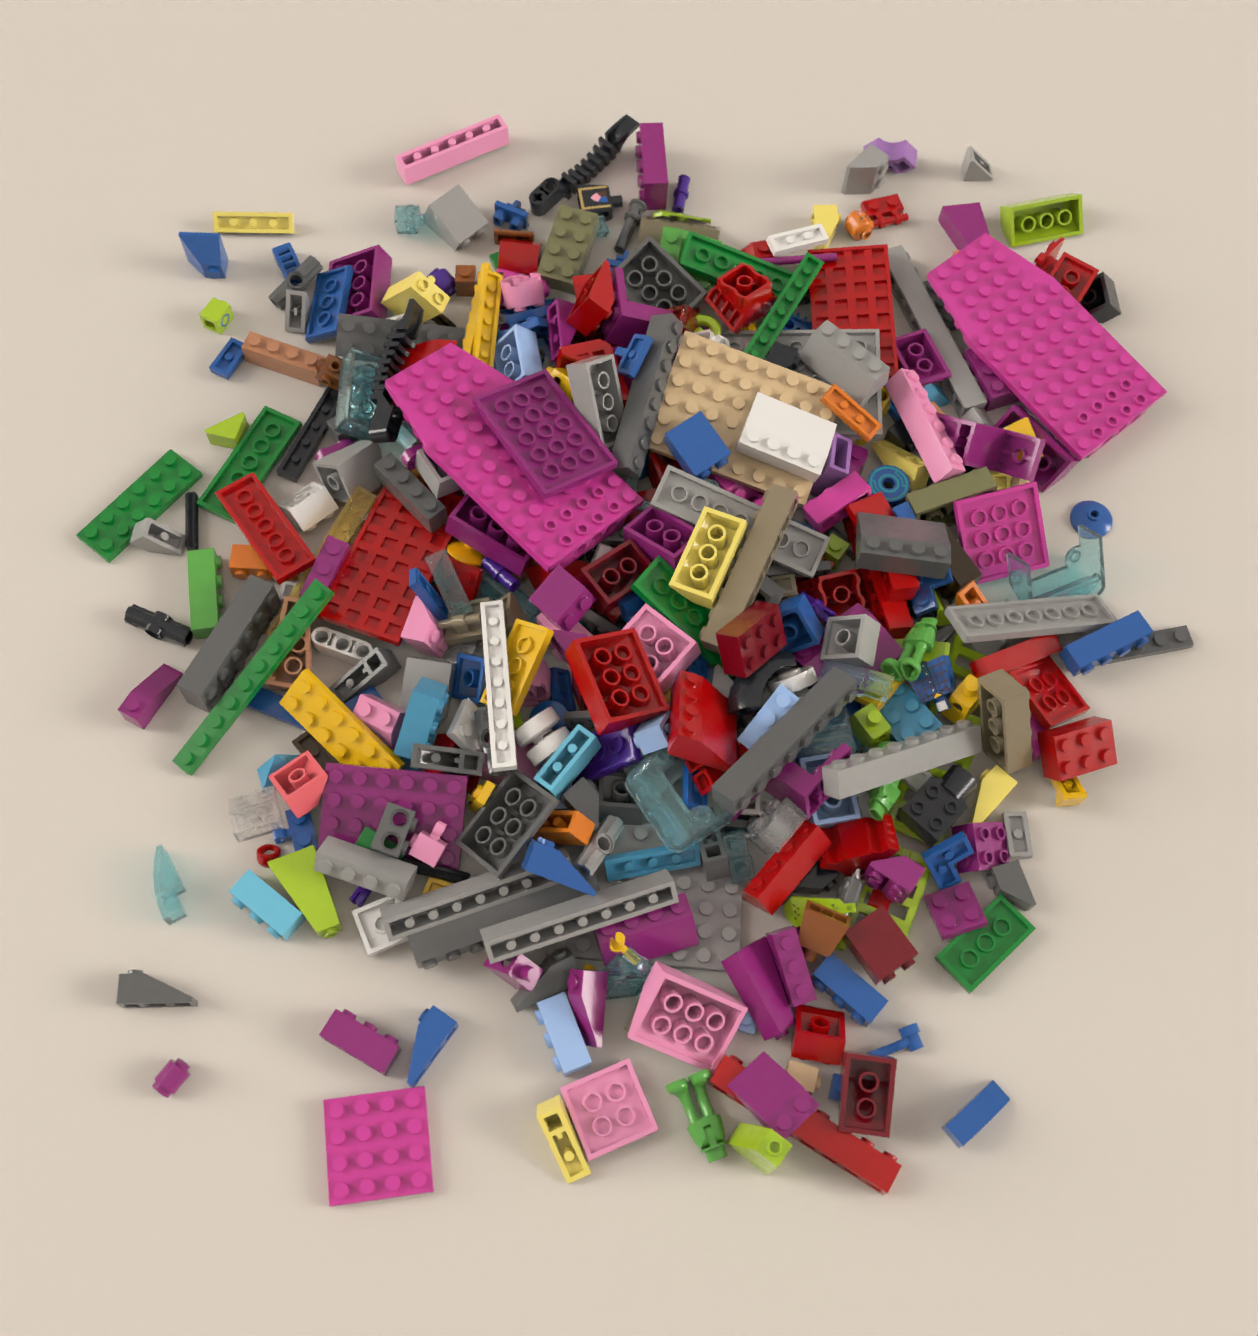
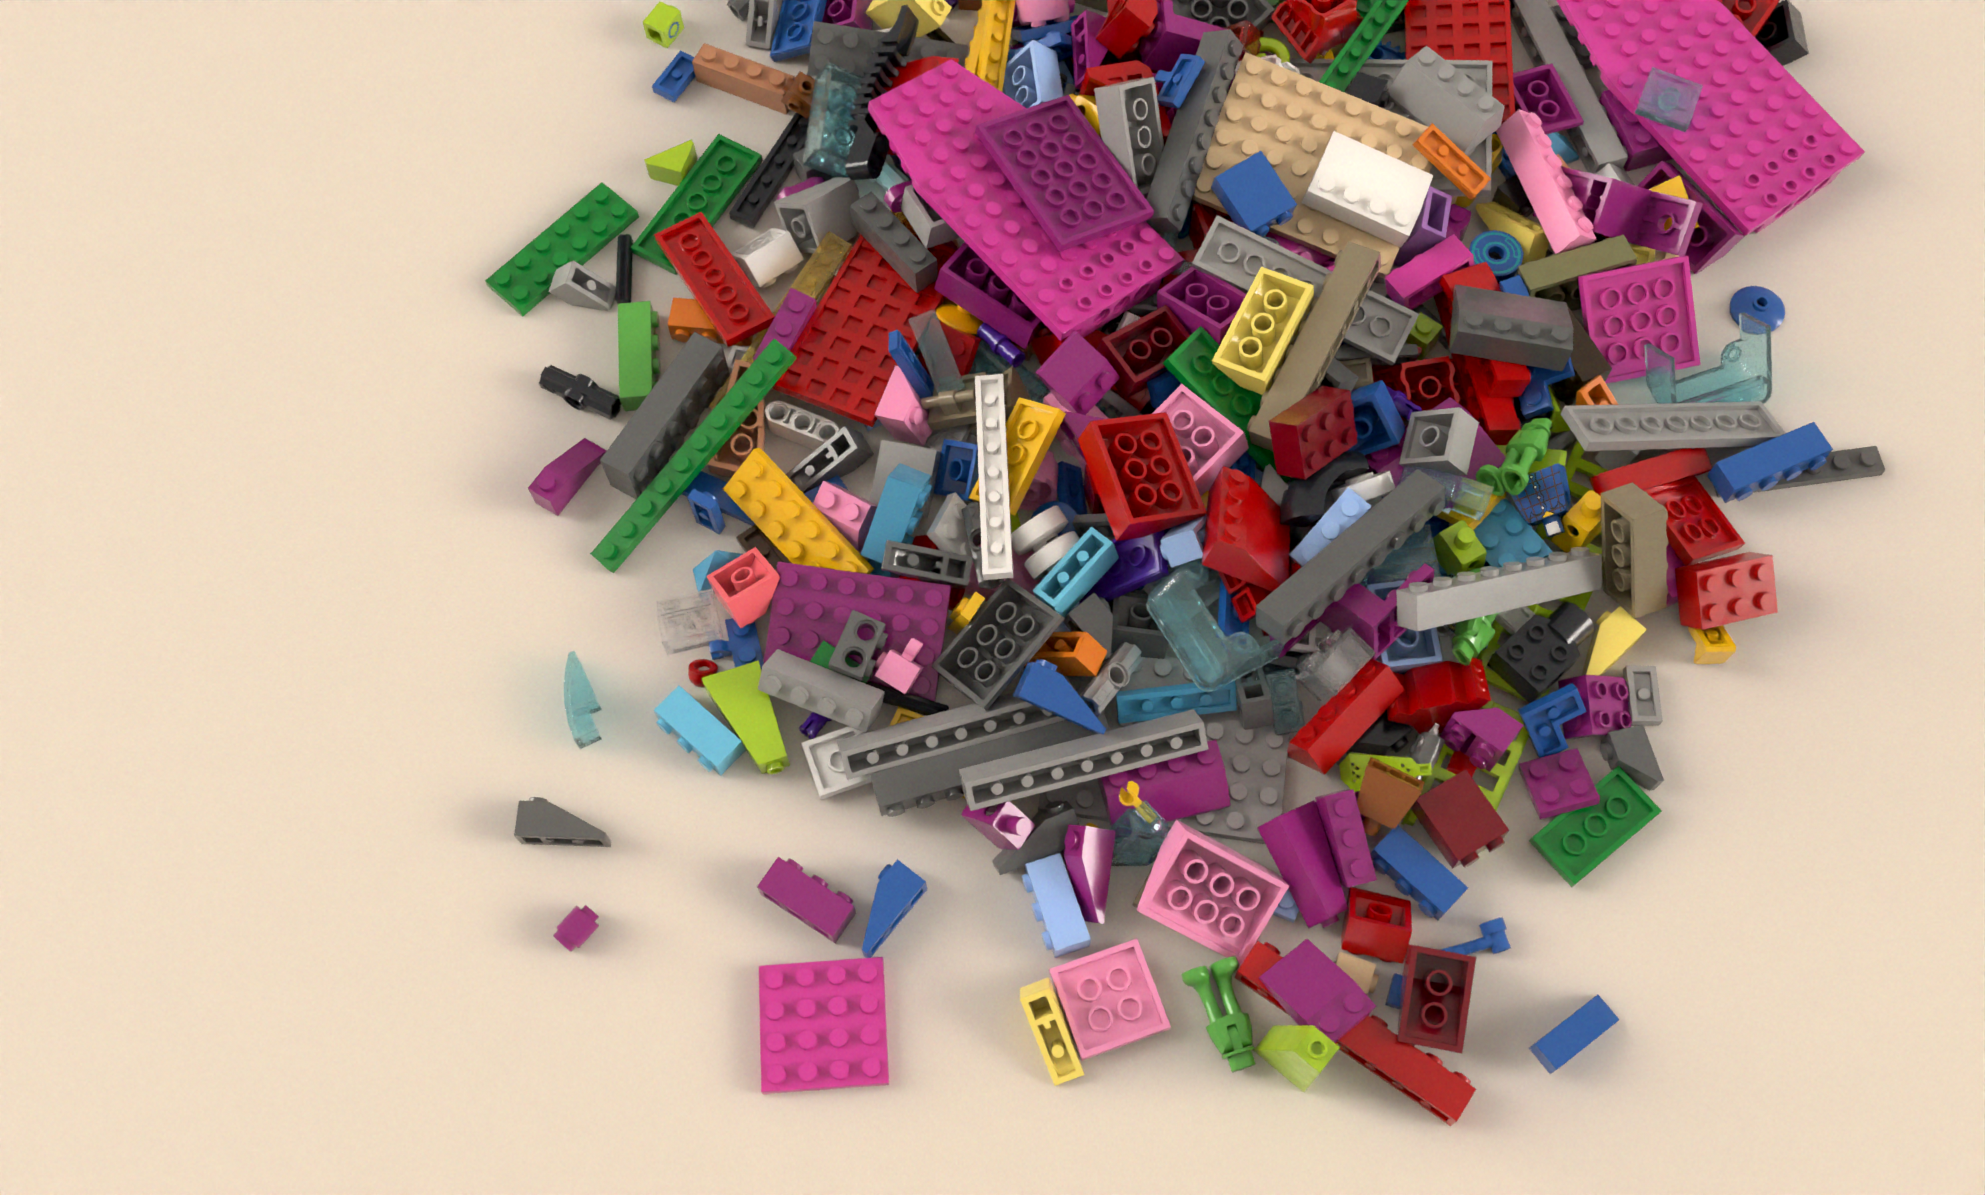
camera: 10 degrees right, 0 degrees up
(266, 721) = (706, 510): none -> blue plate
(1016, 356) = (1668, 99): none -> clear light blue plate

